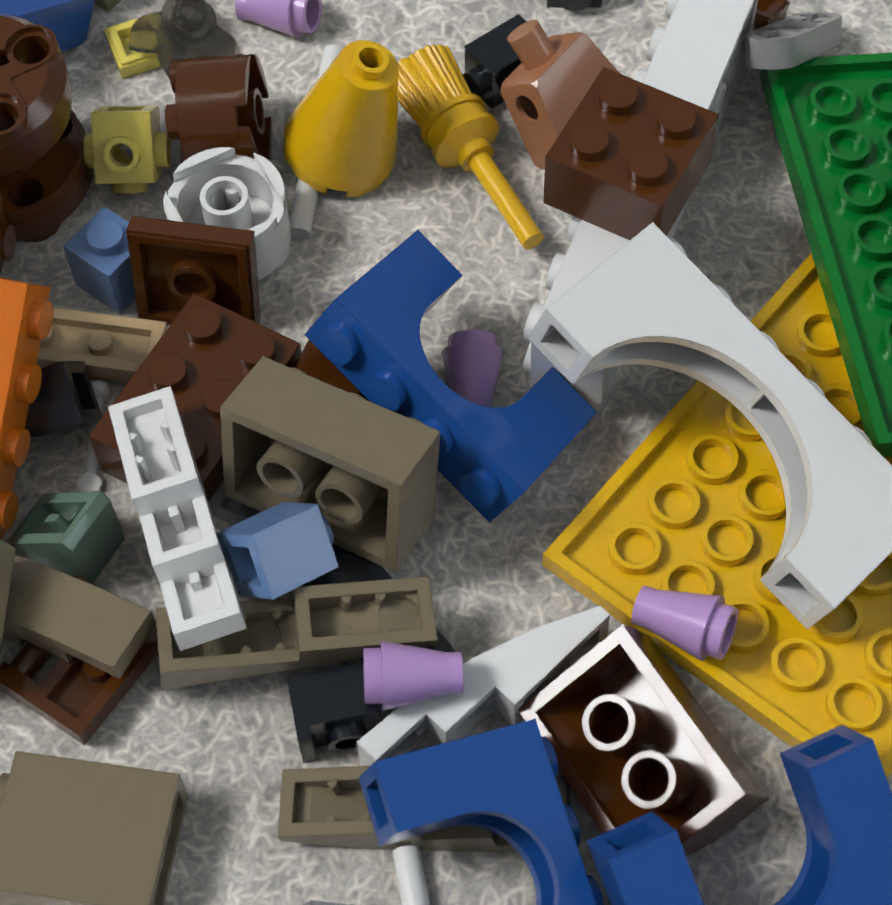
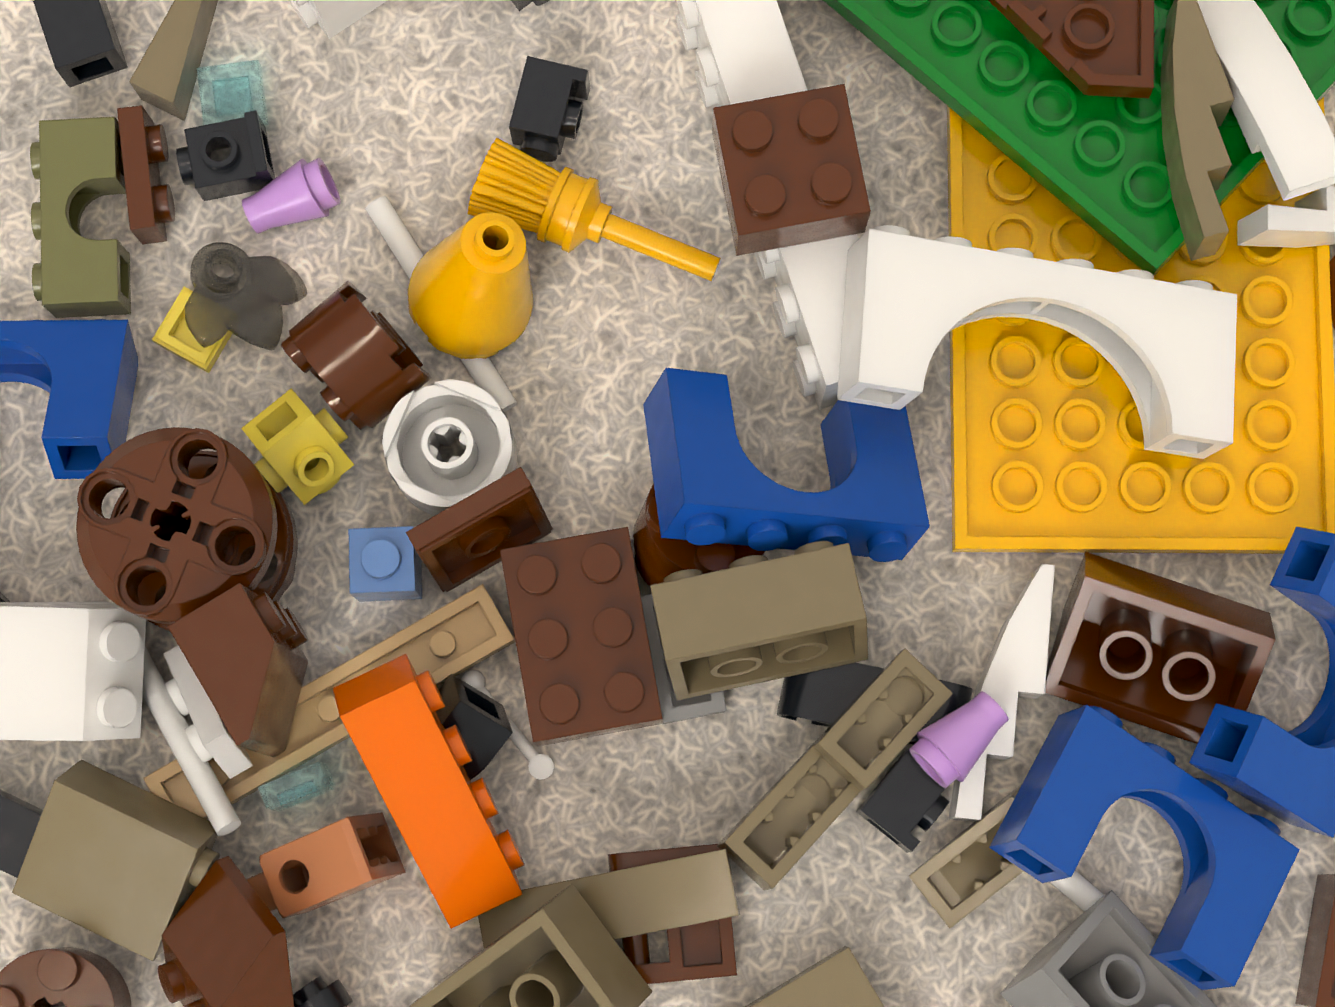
camera: 40 degrees left, 20 degrees up
(70, 533) = (566, 826): sand green slope -> none
(176, 519) = (677, 759): white slope -> none
(278, 550) = (780, 722): medium blue brick -> none
(473, 365) = (769, 433): lavender cone -> none
(548, 83) = (635, 114): nougat torso -> none
(688, 620) = (1116, 524): lavender cone -> none

